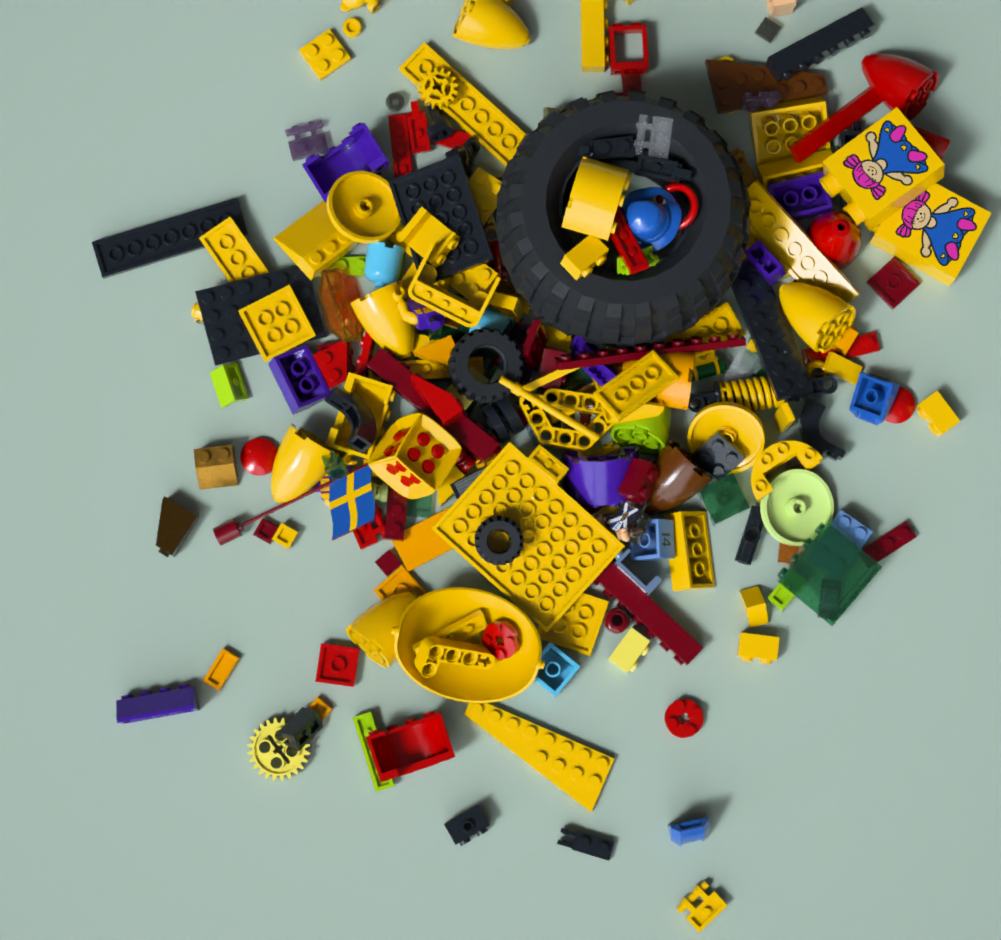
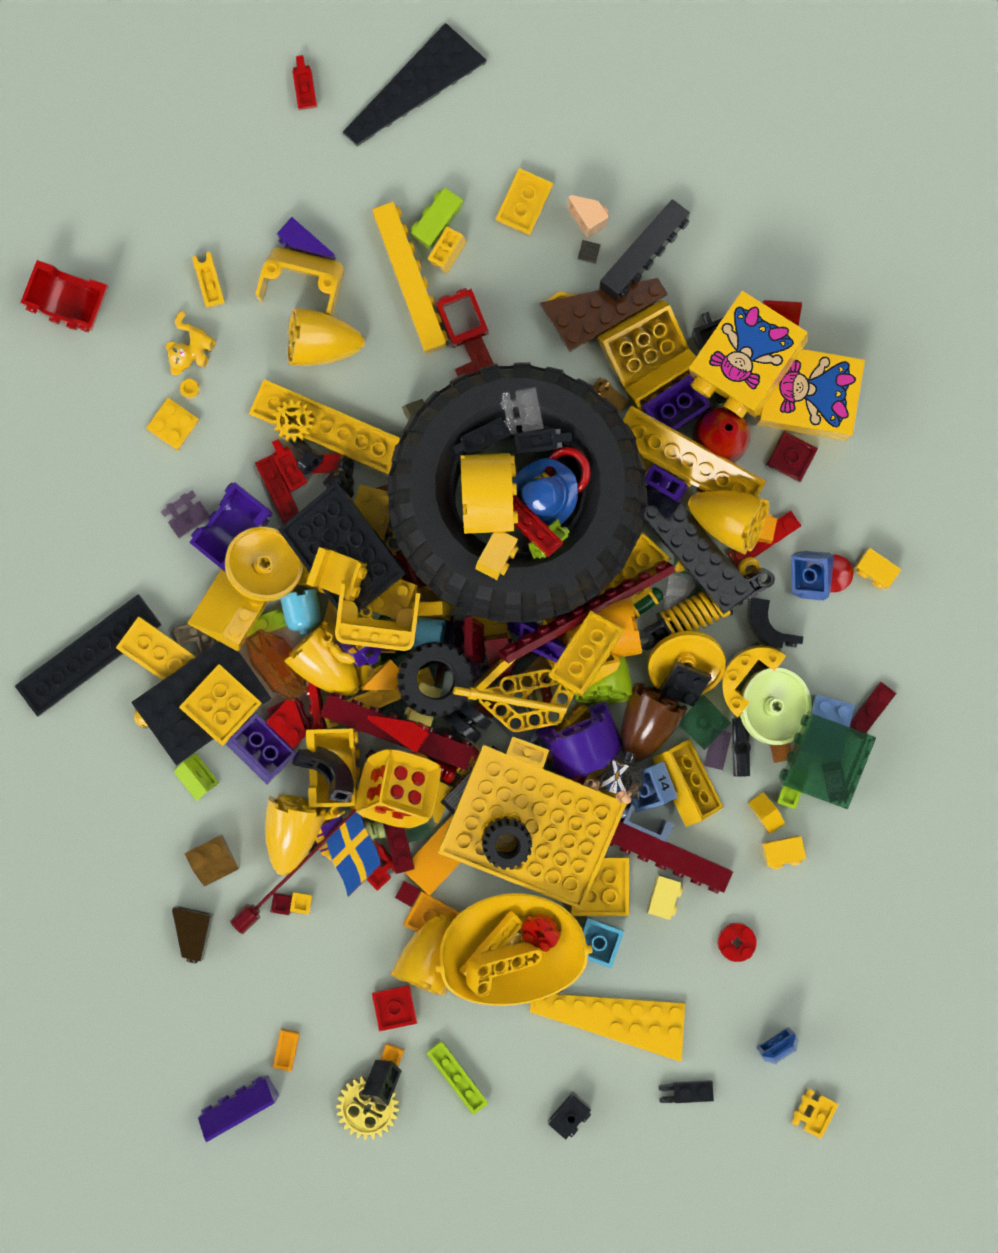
camera: 20 degrees left, 5 degrees up
(258, 456) = (248, 835): red dish -> none
(273, 252) = (187, 634): none -> dark tan tile
(334, 466) = (325, 824): clear green plate -> none
(395, 96) = (250, 447): clear smoke plate -> none
(410, 746) = (489, 1064): red cylinder -> none
(616, 621) = (642, 874): dark red head -> none
(638, 481) = (619, 737): dark red brick -> none
(728, 531) = (717, 751): none -> clear purple tile
(763, 99) = (612, 323): clear purple wing -> none
(783, 417) = (735, 628): yellow tile -> none
(834, 125) = (685, 323): red tile -> none
(842, 368) = (772, 556): yellow tile -> none
(900, 82) = (732, 260): red cylinder -> none

